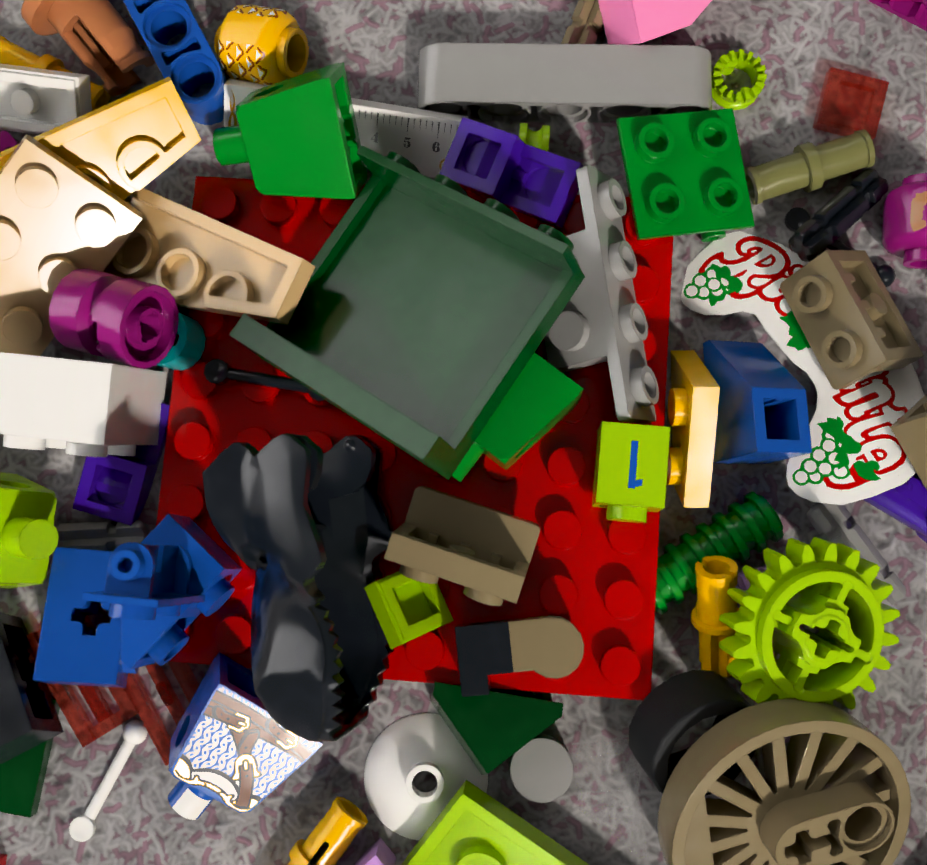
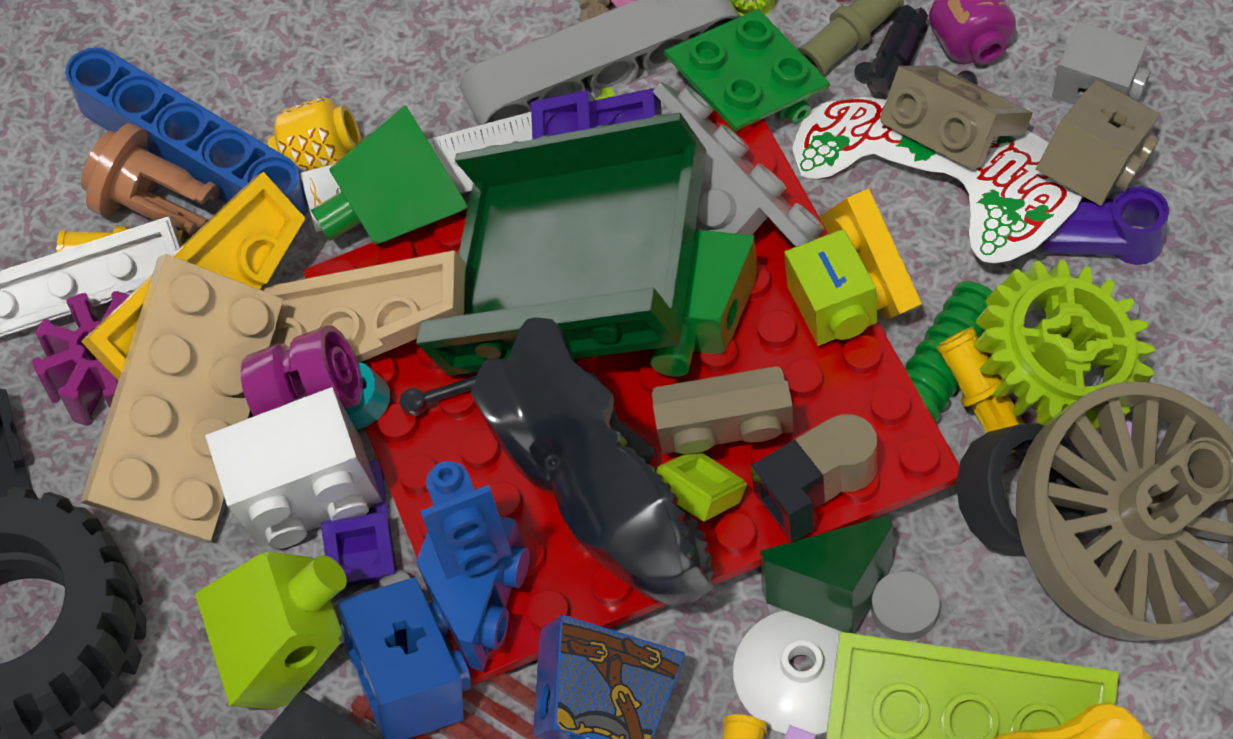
camera: 25 degrees left, 25 degrees down
(759, 405) = (925, 218): blue slope -> none

